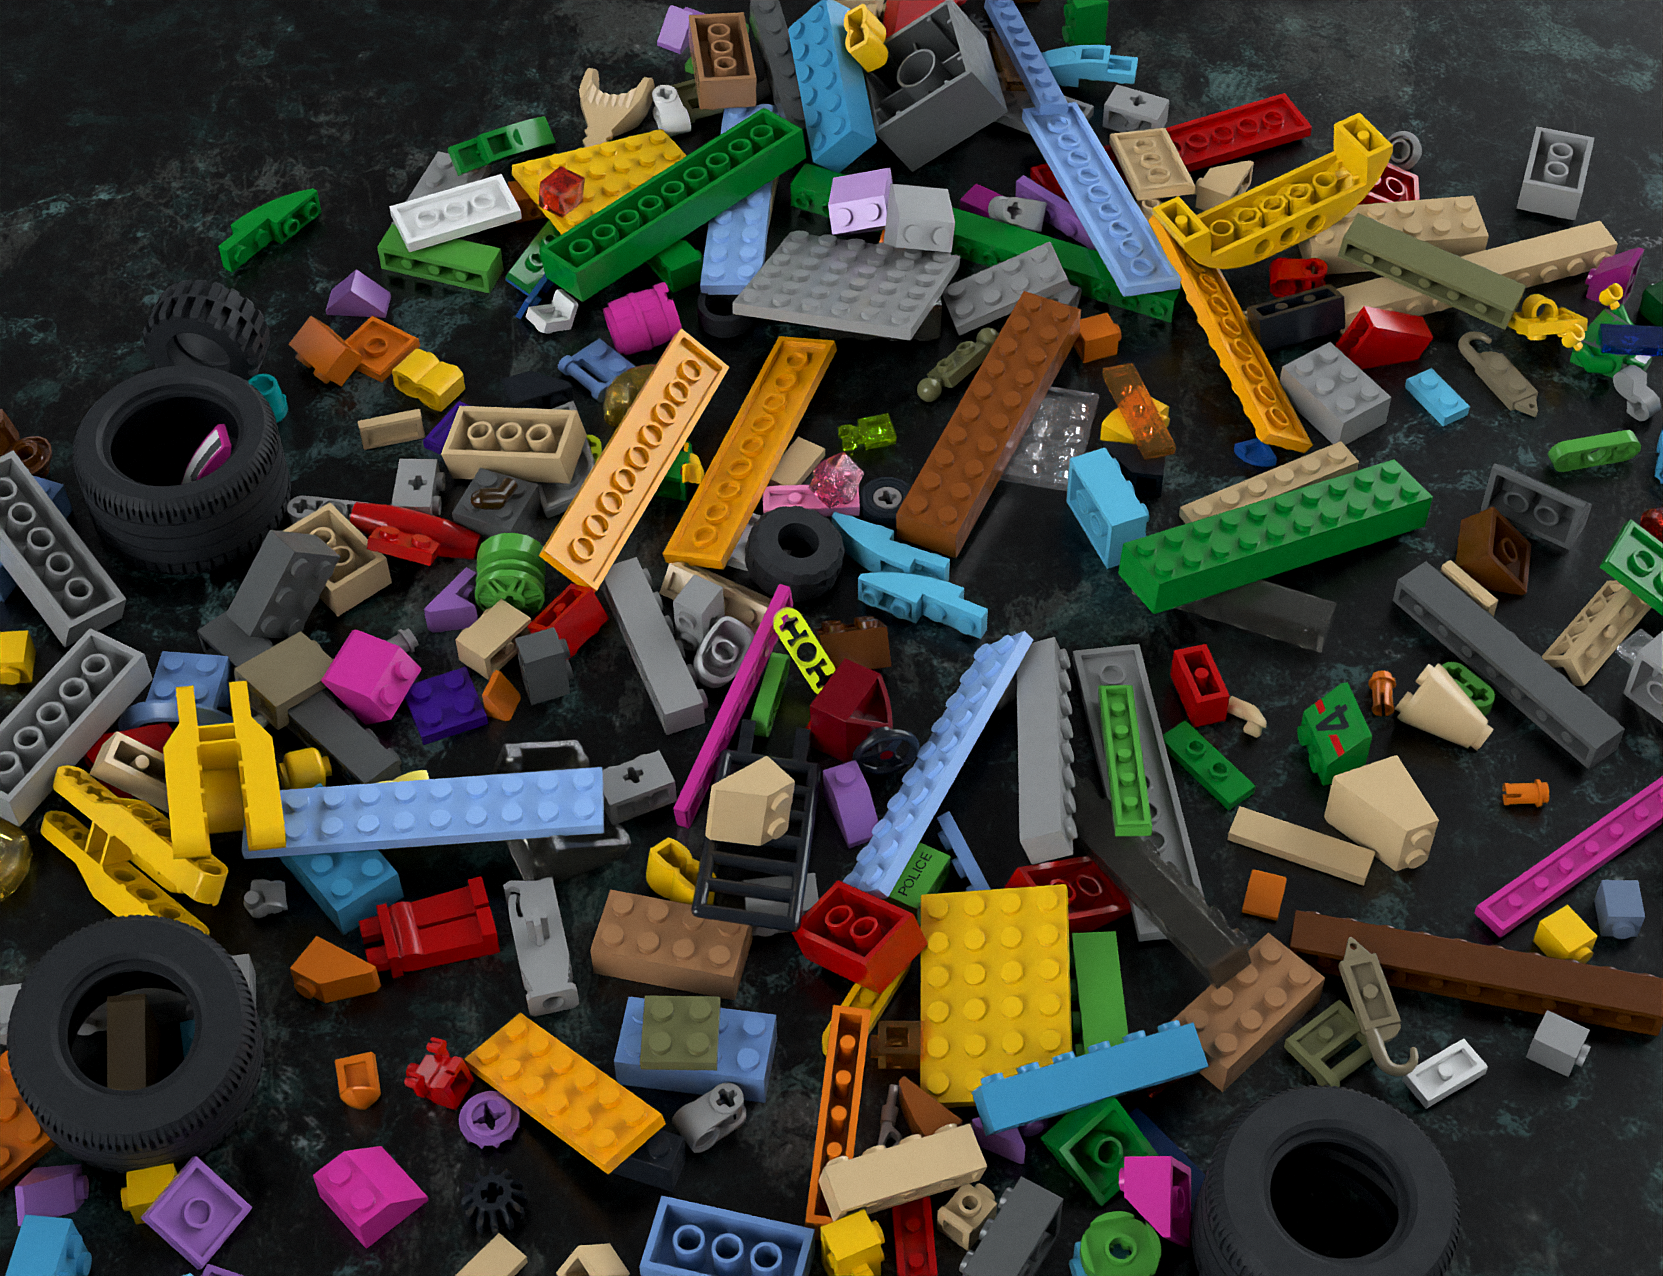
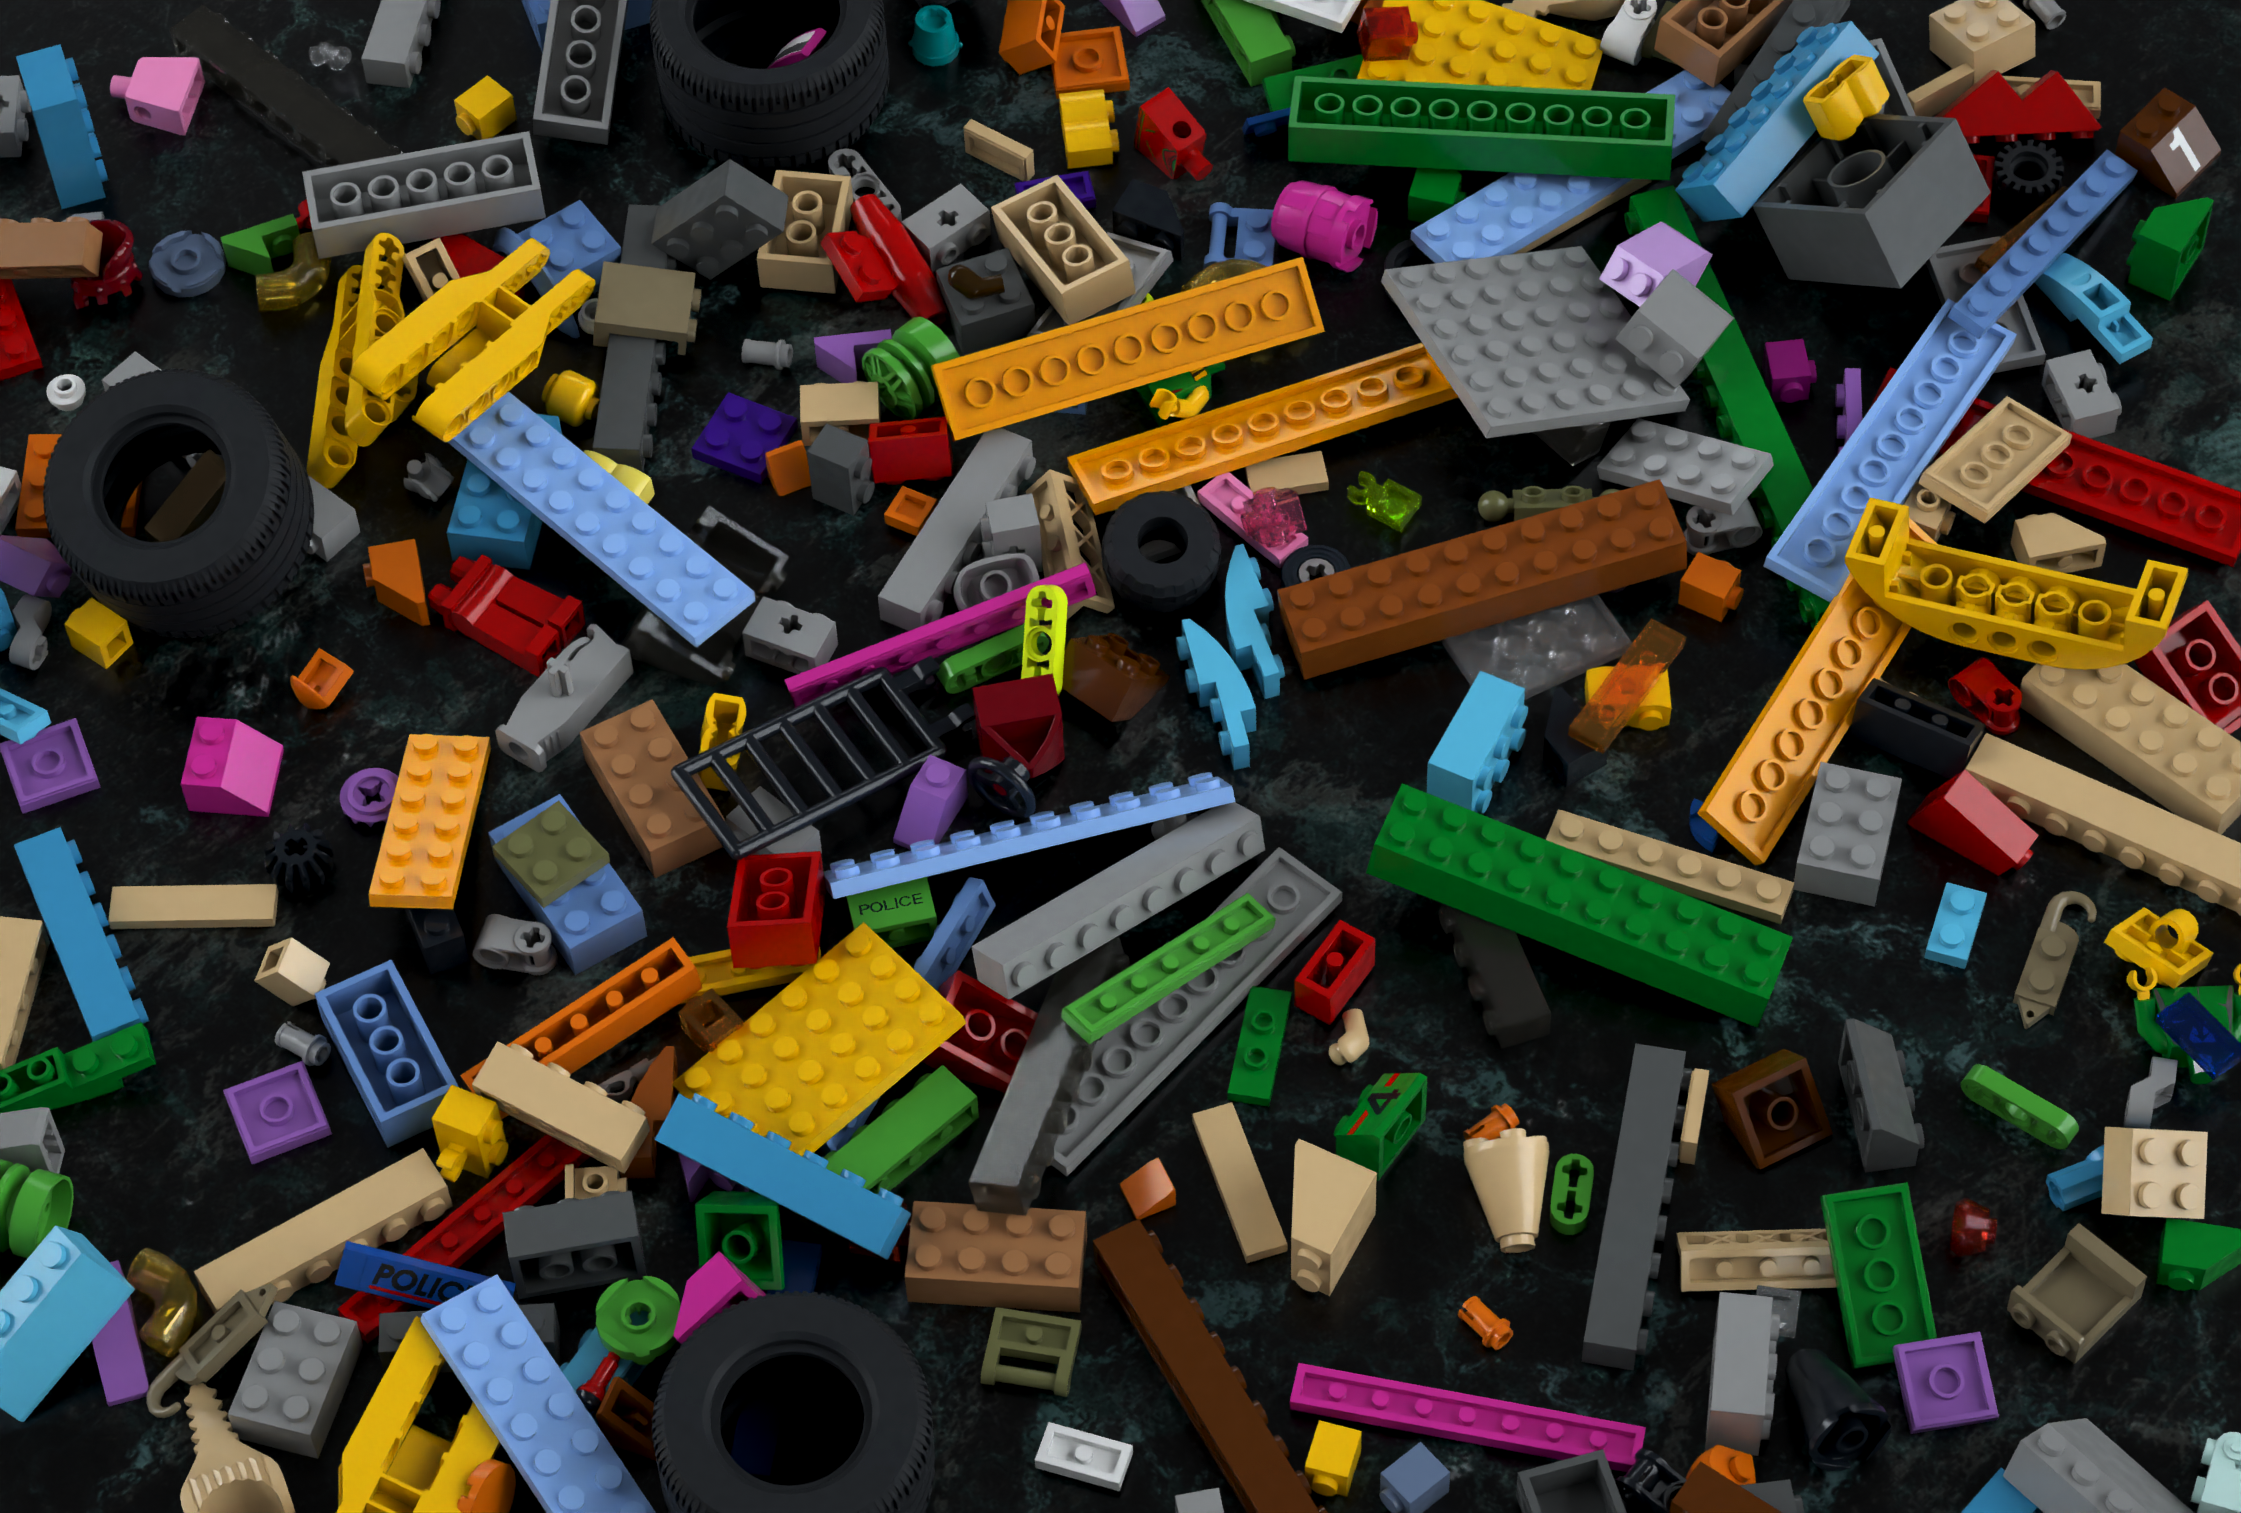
camera: 50 degrees right, 5 degrees up
(100, 1239) = (29, 645): none -> light grey piece
(196, 1212) = (104, 672): medium lavender tile -> none
(371, 676) = (703, 359): dark pink slope -> none
(440, 1076) = (373, 730): red piece -> none
(492, 343) = (1171, 137): none -> red torso
(554, 316) = (1262, 154): white bracket -> none
(608, 658) = (909, 510): none -> orange plate
(751, 805) = (809, 722): tan slope -> none
(1018, 212) = (1806, 406): light grey piece -> none
(1373, 1006) = (1089, 1347): dark tan plate -> none
(1431, 271) = (2096, 796): olive brick -> none

